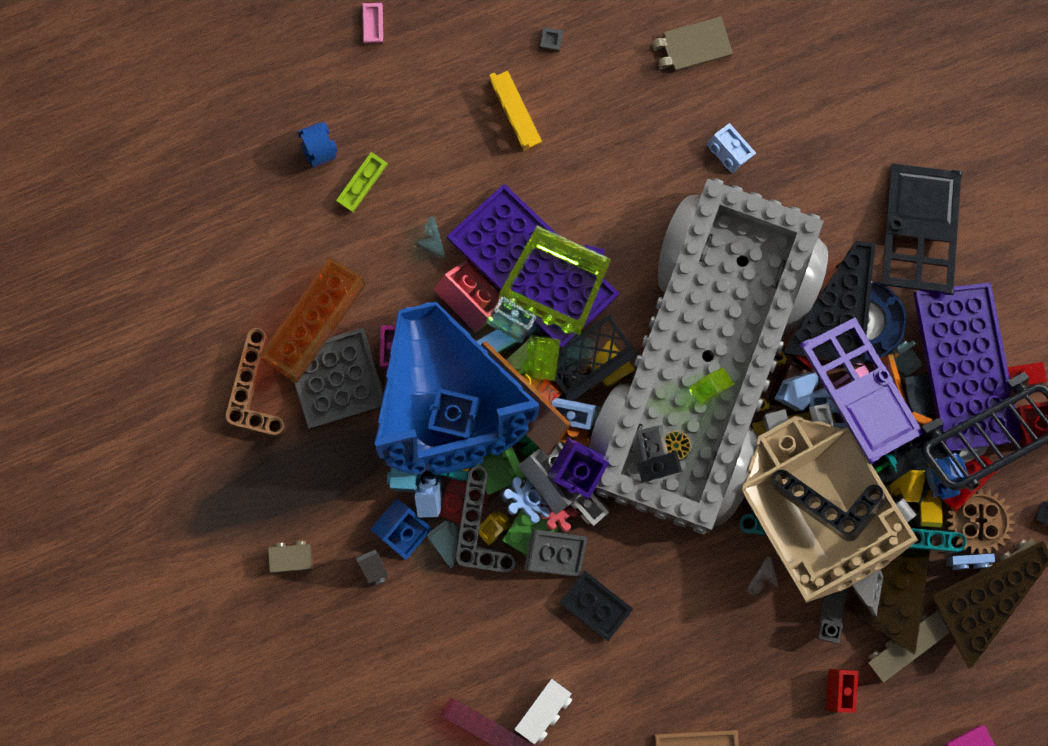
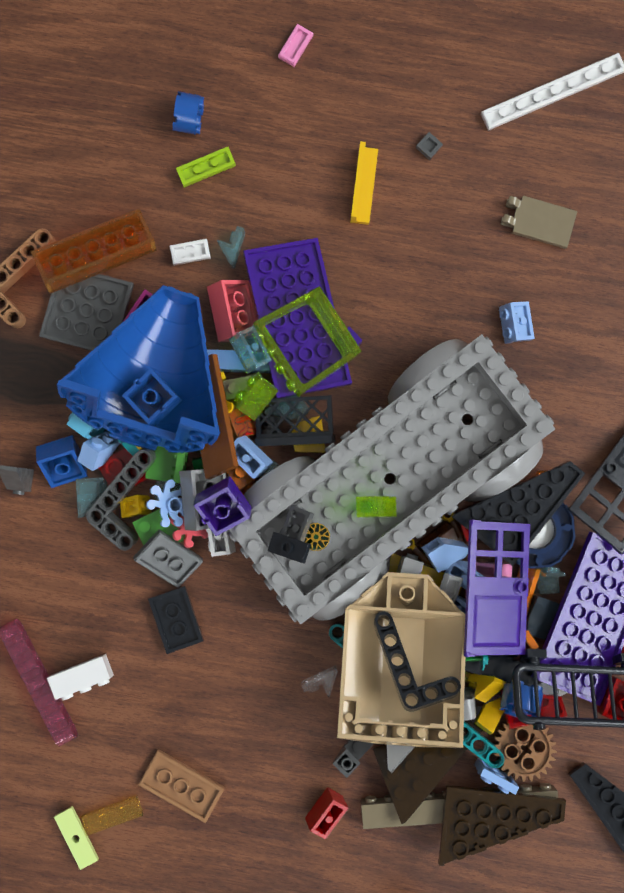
camera: 35 degrees right, 5 degrees up
(396, 267) = (190, 252): none -> white plate

